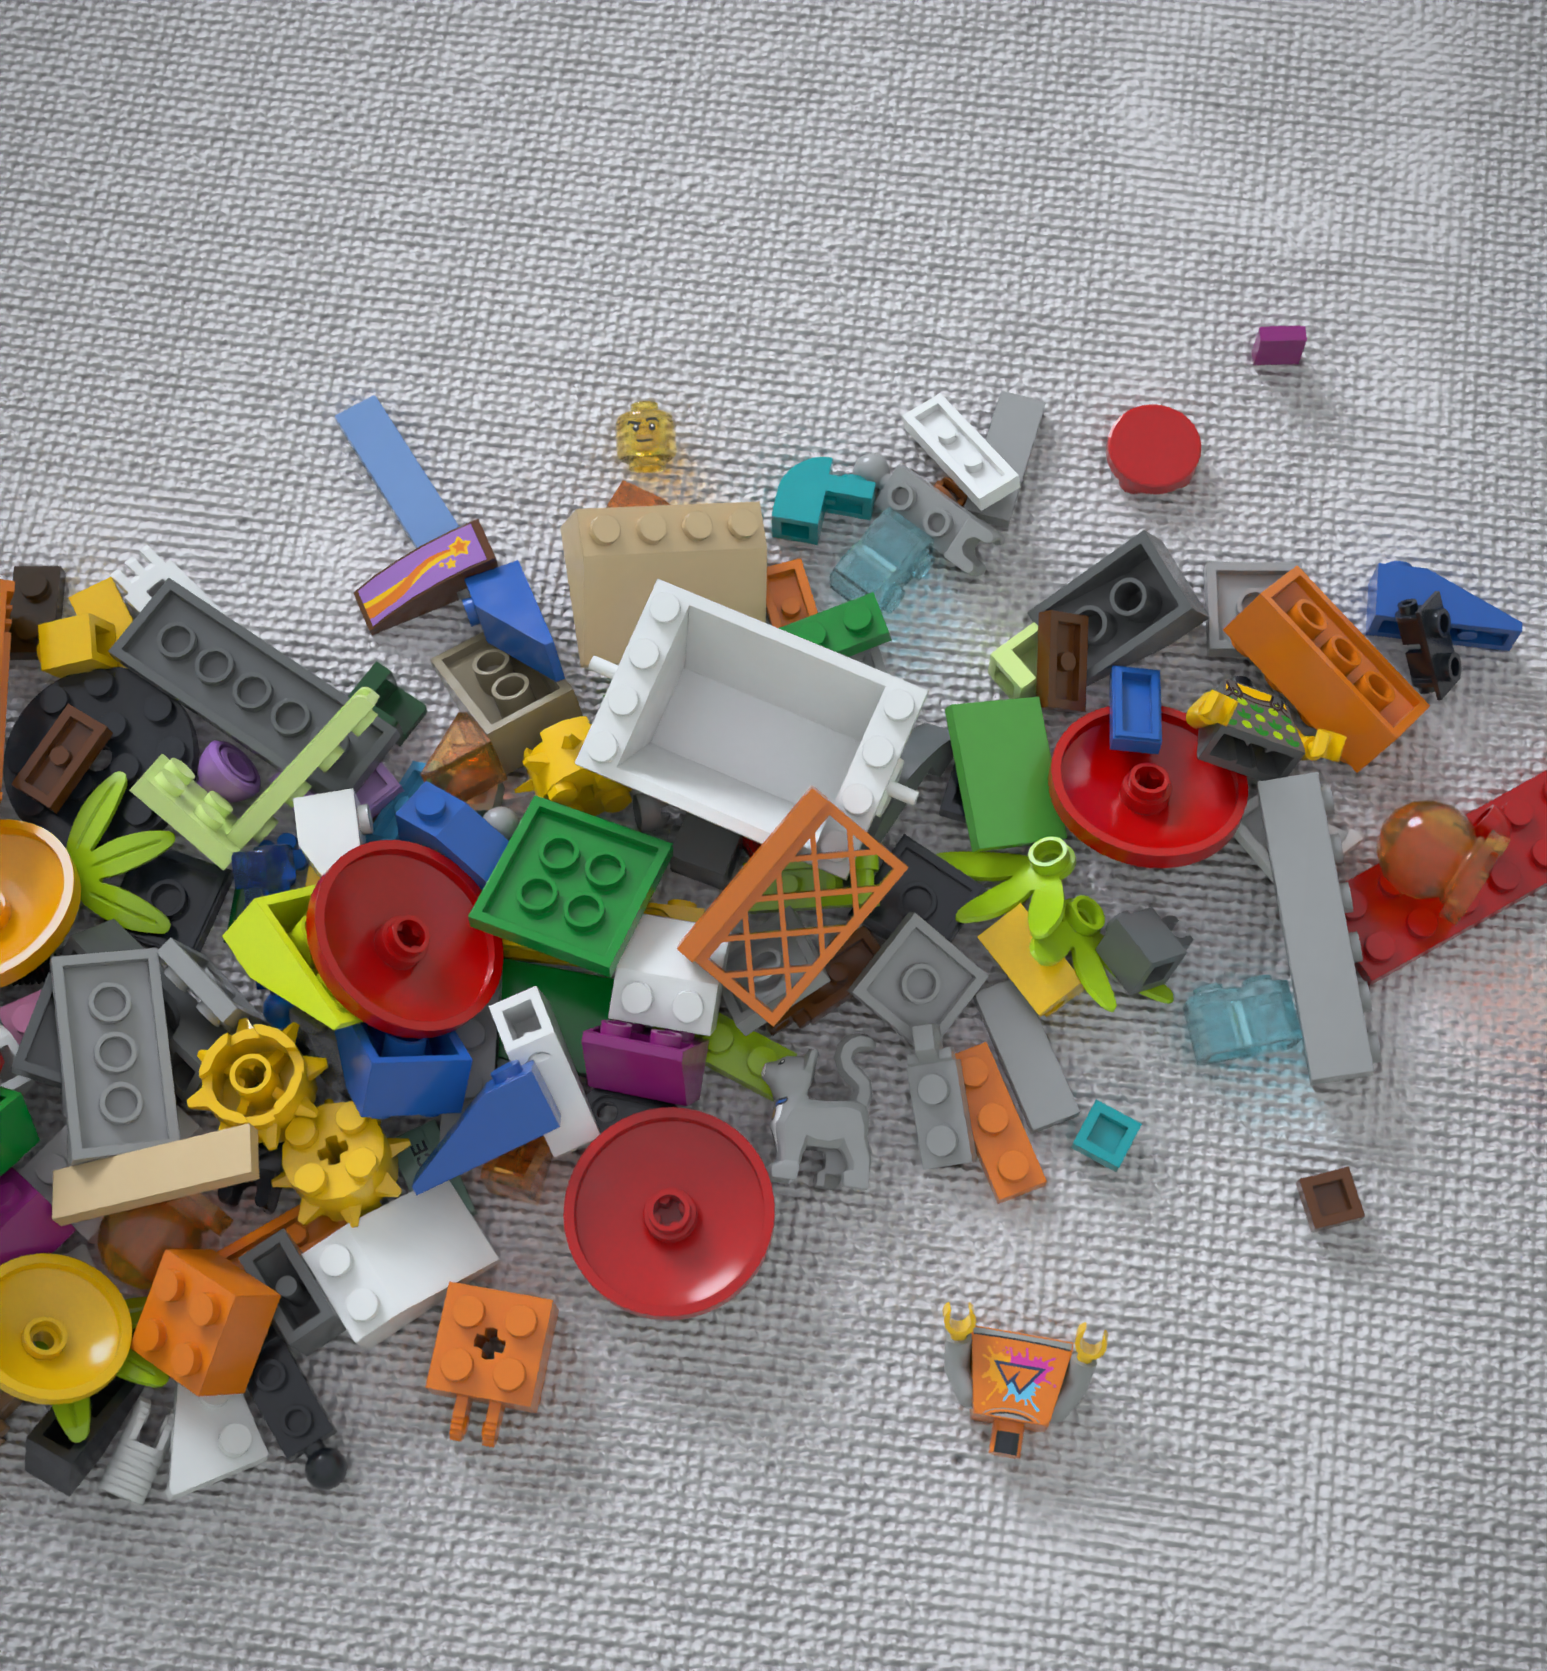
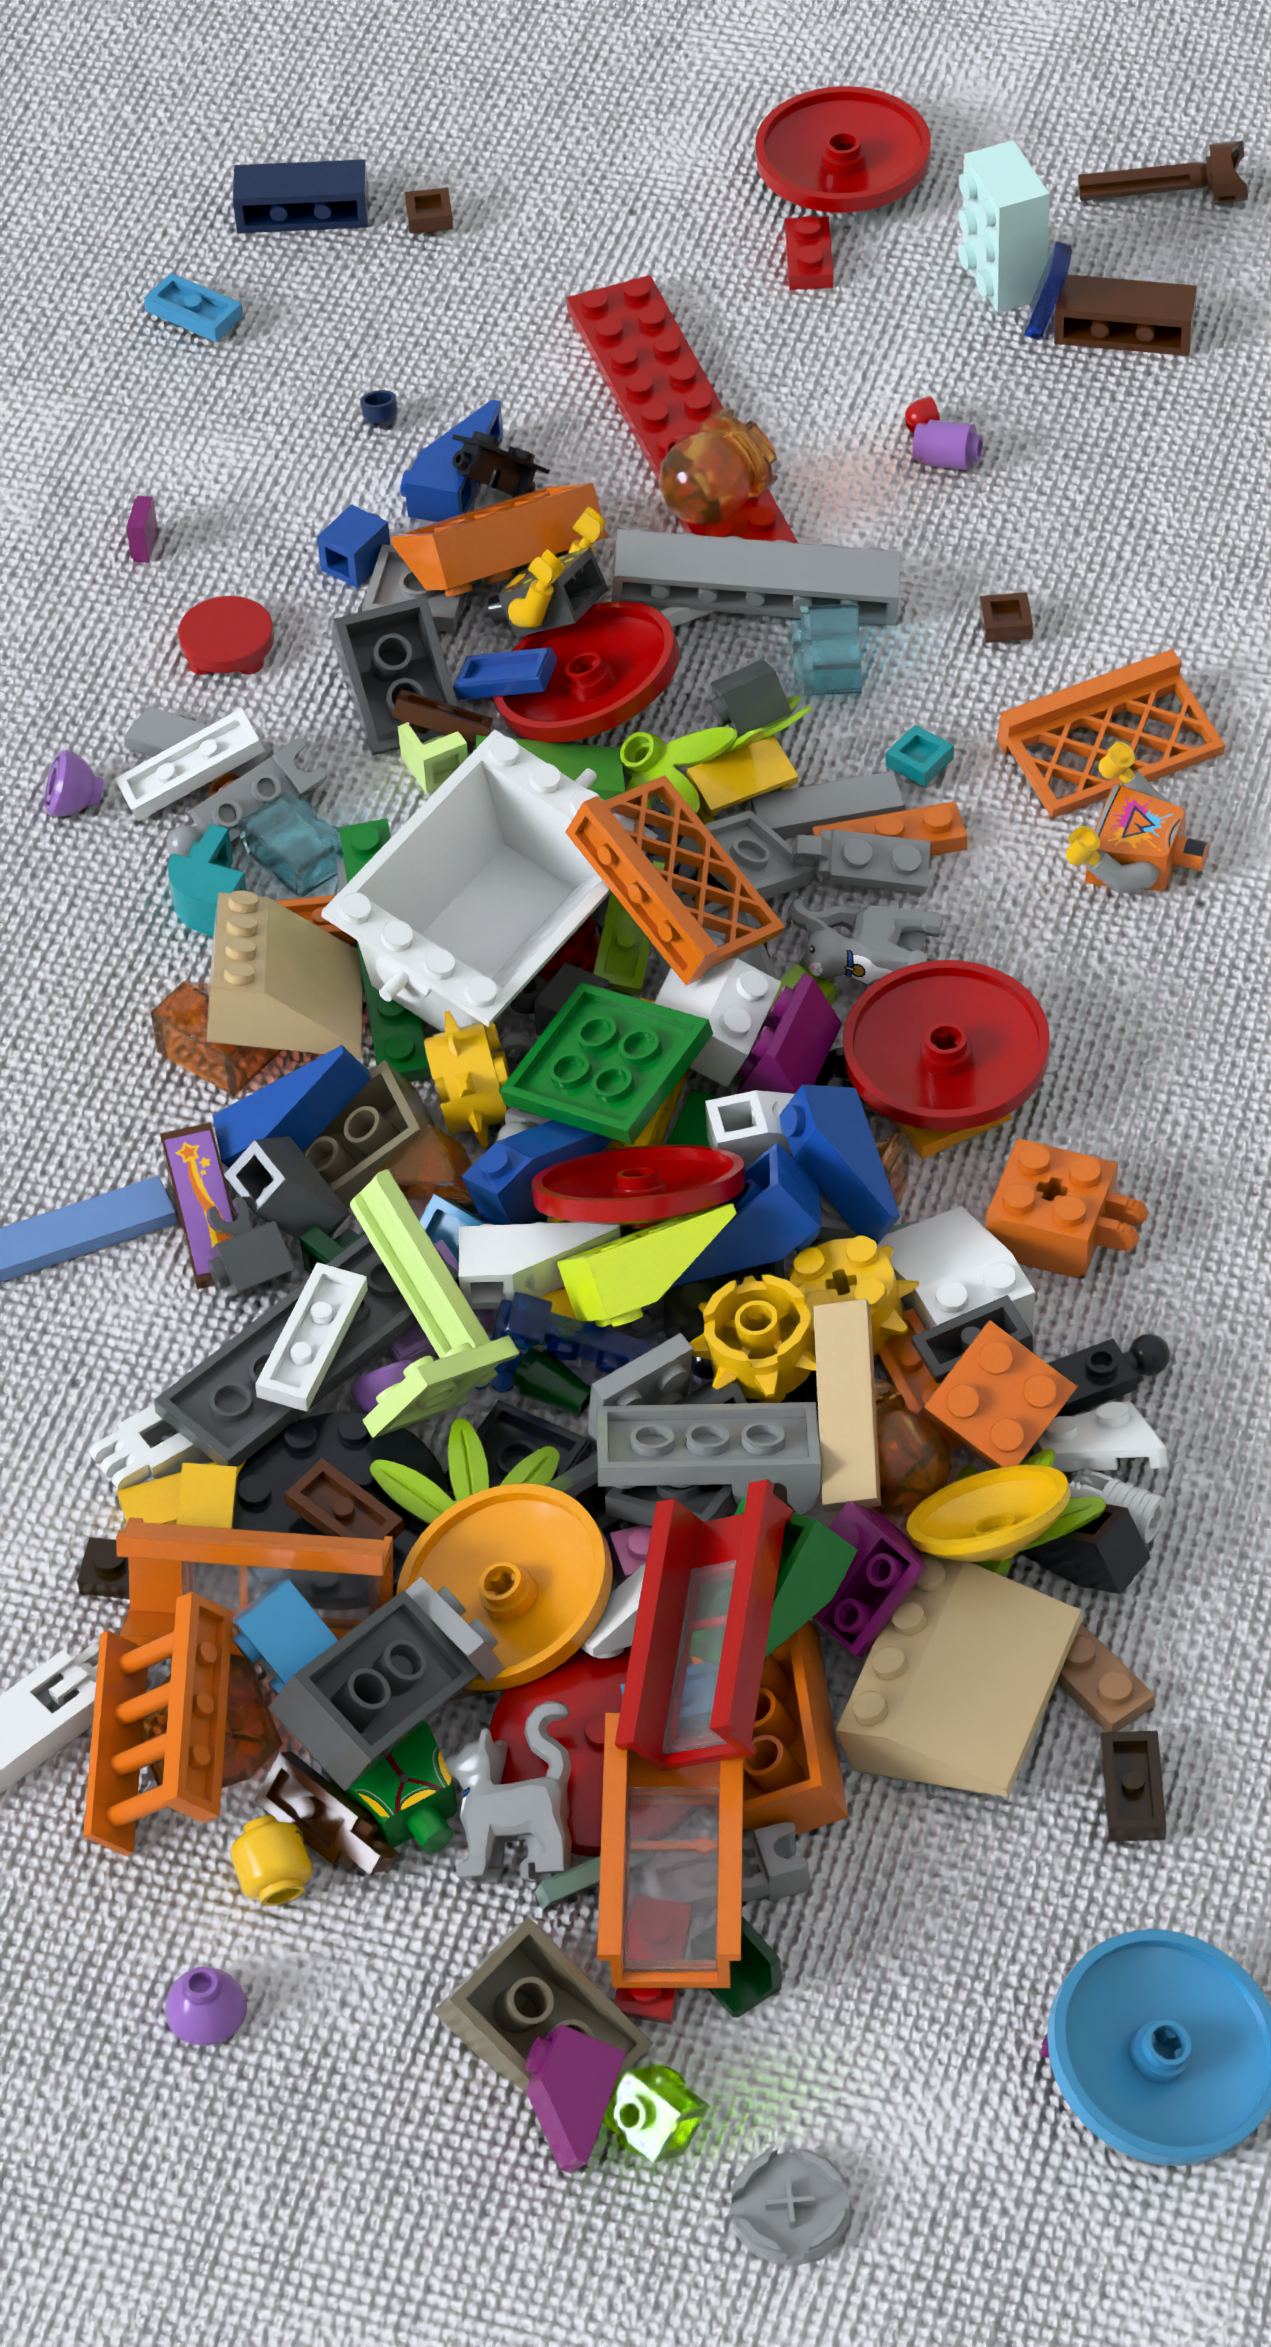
camera: 80 degrees left, 20 degrees down
(232, 689) = (311, 1337): none -> white plate
(362, 623) = (250, 1255): none -> dark grey brick
(425, 636) = (285, 1188): none -> dark grey slope
(645, 437) = (92, 1011): clear yellow head -> none
(925, 359) = (71, 785): none -> medium lavender brick
(1208, 1307) = (1086, 707): none -> orange fence
(1298, 536) = (352, 545): none -> blue brick
(1503, 516) = (379, 407): none -> dark blue hinge

